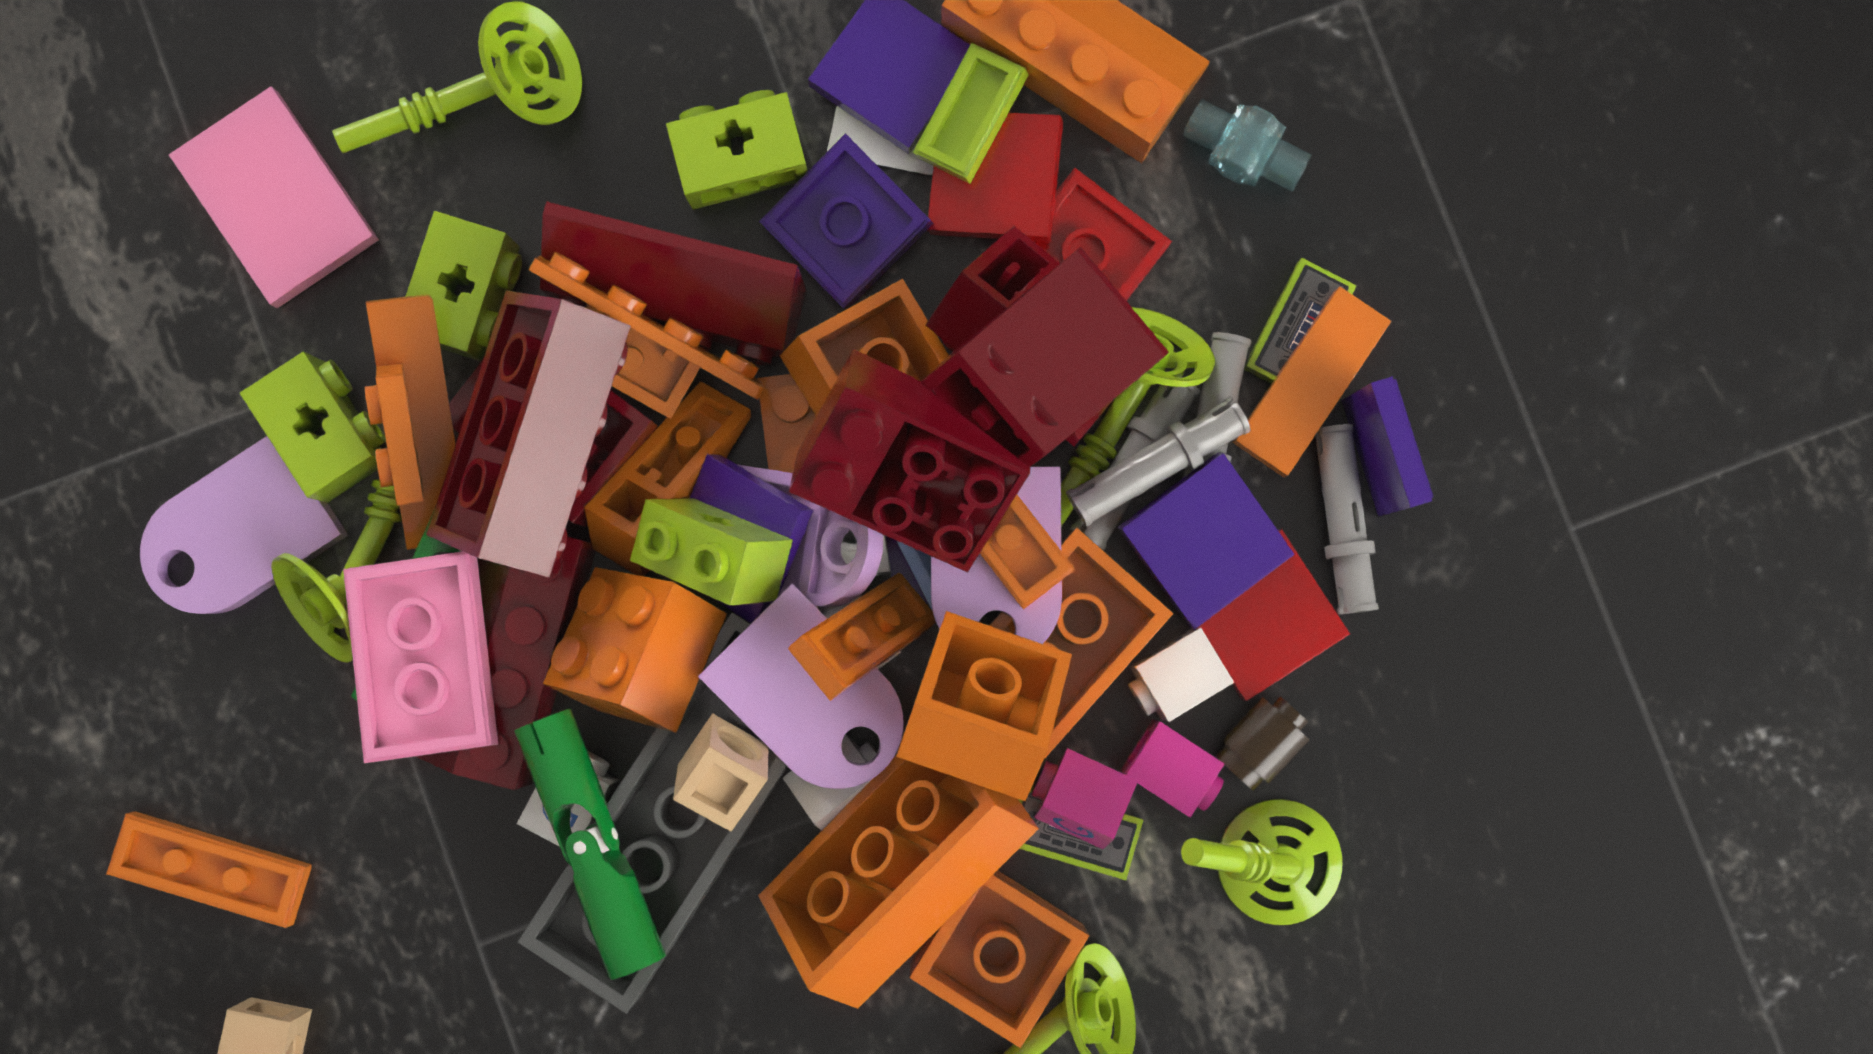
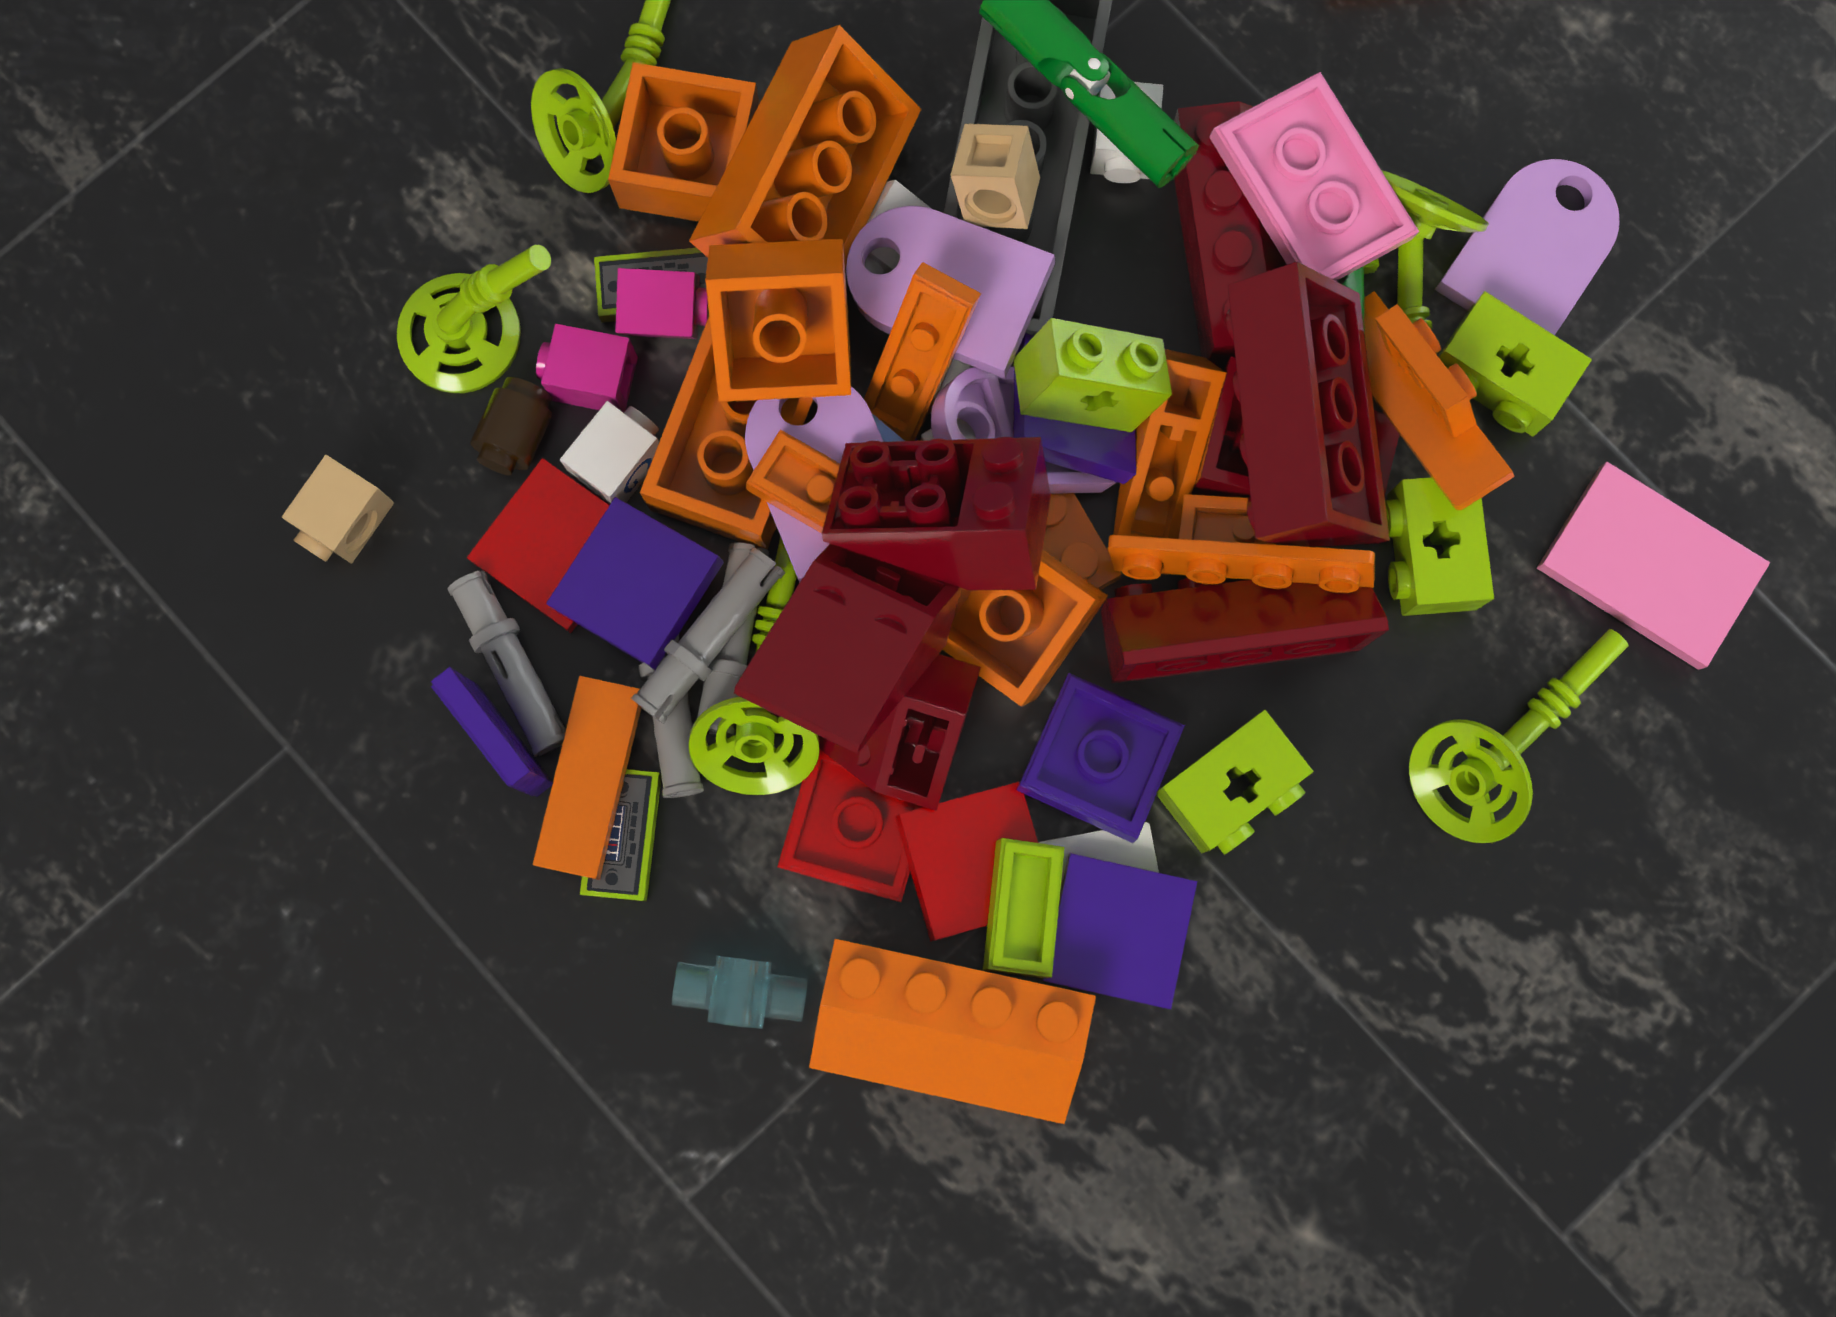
camera: 160 degrees right, 5 degrees down
(635, 648) = (1125, 264): orange brick -> none
(1456, 724) = (336, 511): none -> tan brick

